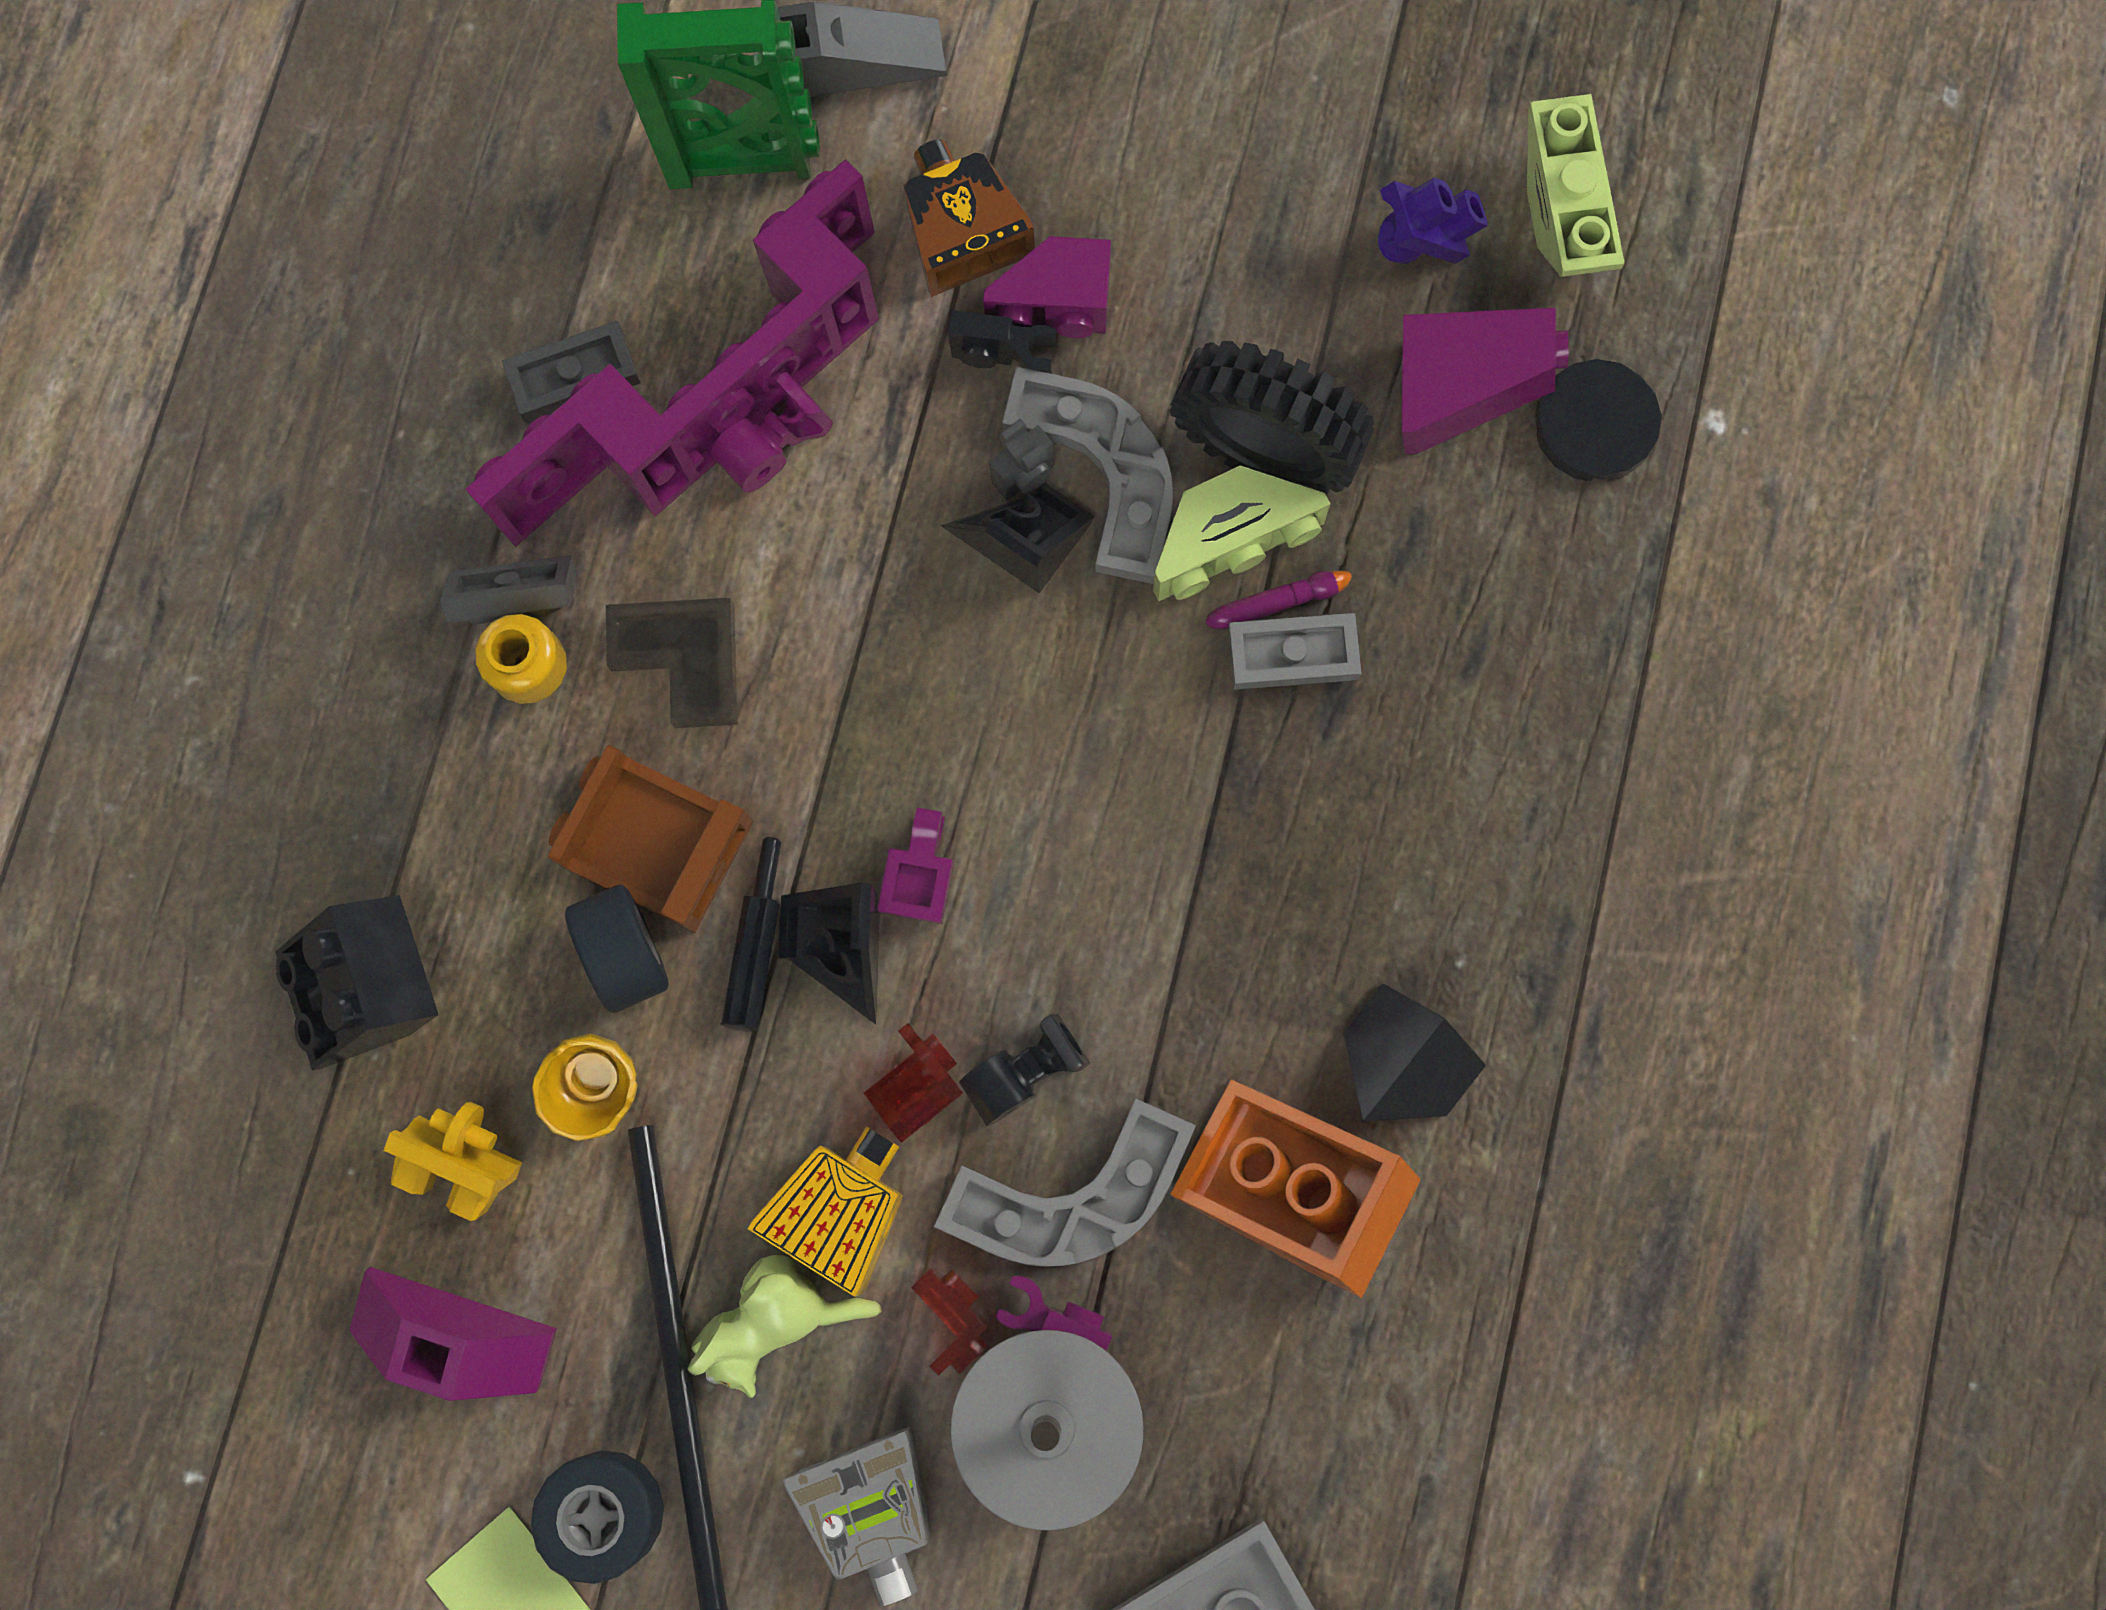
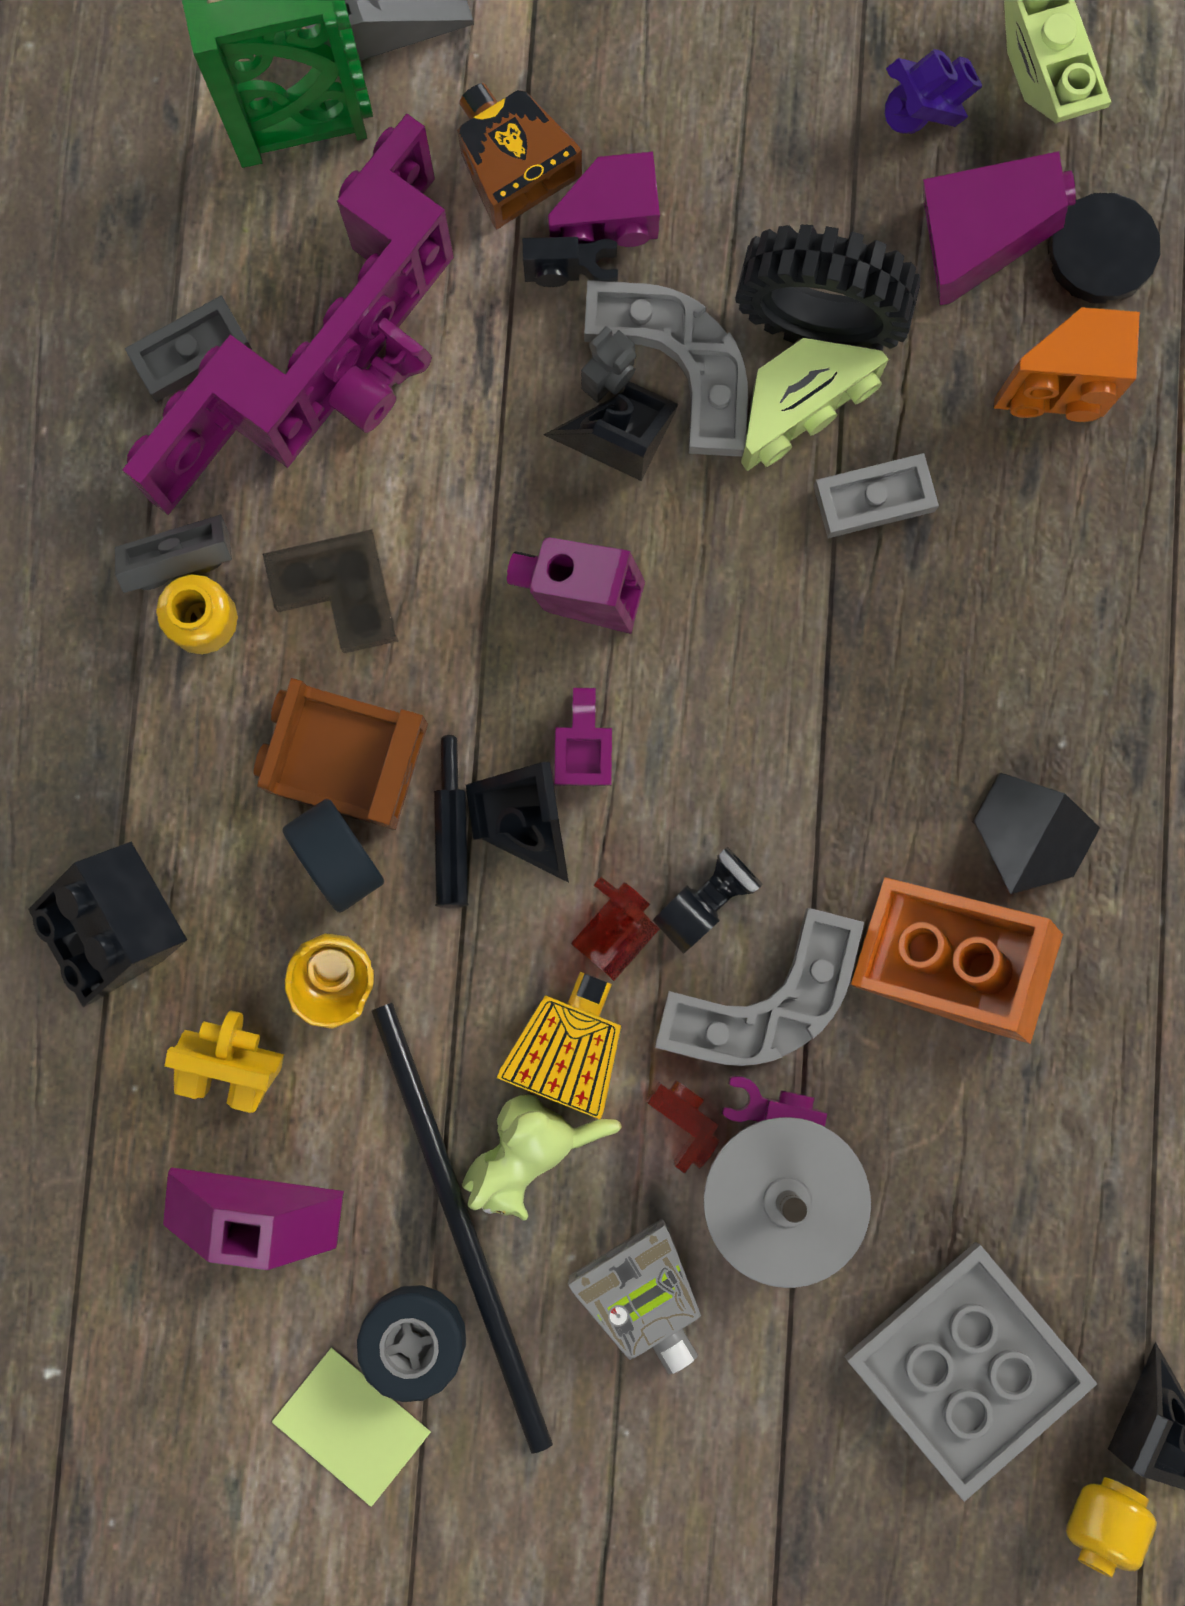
camera: 15 degrees left, 5 degrees up
(948, 693) = (581, 582): none -> magenta torso
(1318, 586) = (885, 435): magenta piece -> none
(1535, 545) = (1076, 368): none -> orange slope

